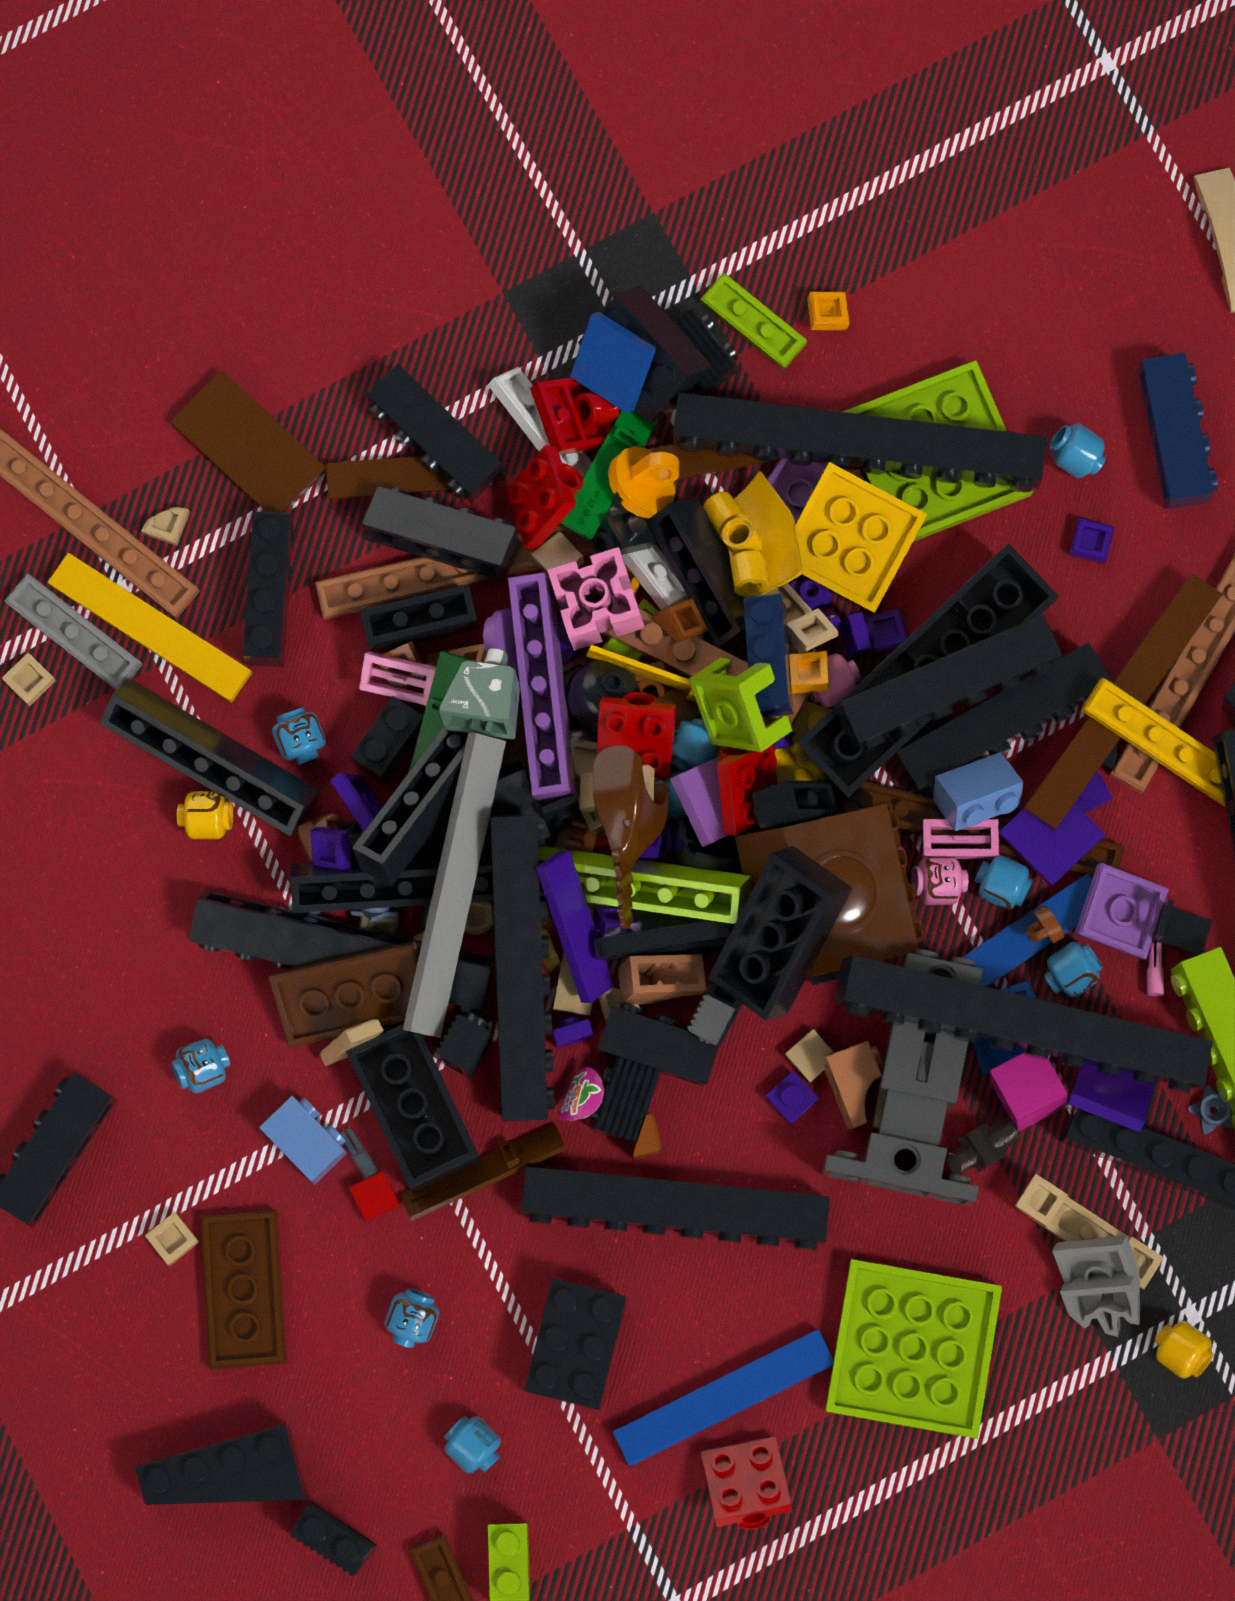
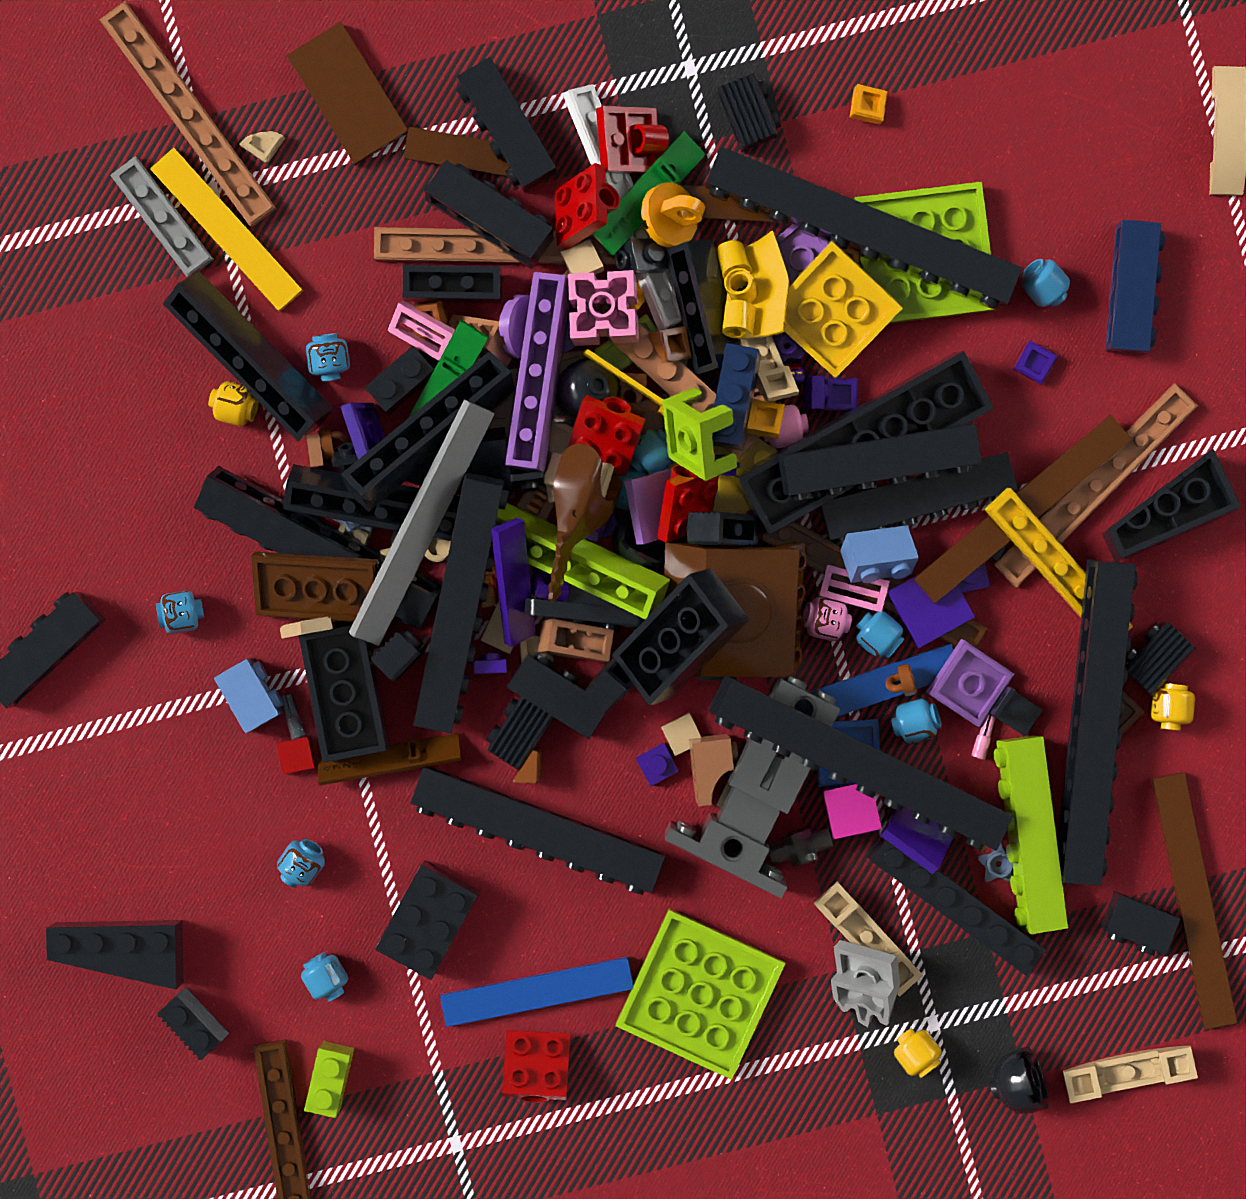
camera: 15 degrees right, 10 degrees up
(28, 679) = (115, 247): tan tile -> none
(172, 1238) = (123, 746): tan tile -> none
(243, 1290) = (171, 802): reddish brown tile -> none
(268, 589) = (333, 223): black brick -> none
(330, 848) = (327, 463): dark purple tile -> none
(483, 698) = (484, 372): sand green torso -> none
(582, 1095) = (484, 720): sticker -> none
(613, 362) = (671, 105): blue tile -> none
(676, 361) = (701, 103): black brick -> none
(753, 321) = (802, 96): lime tile -> none

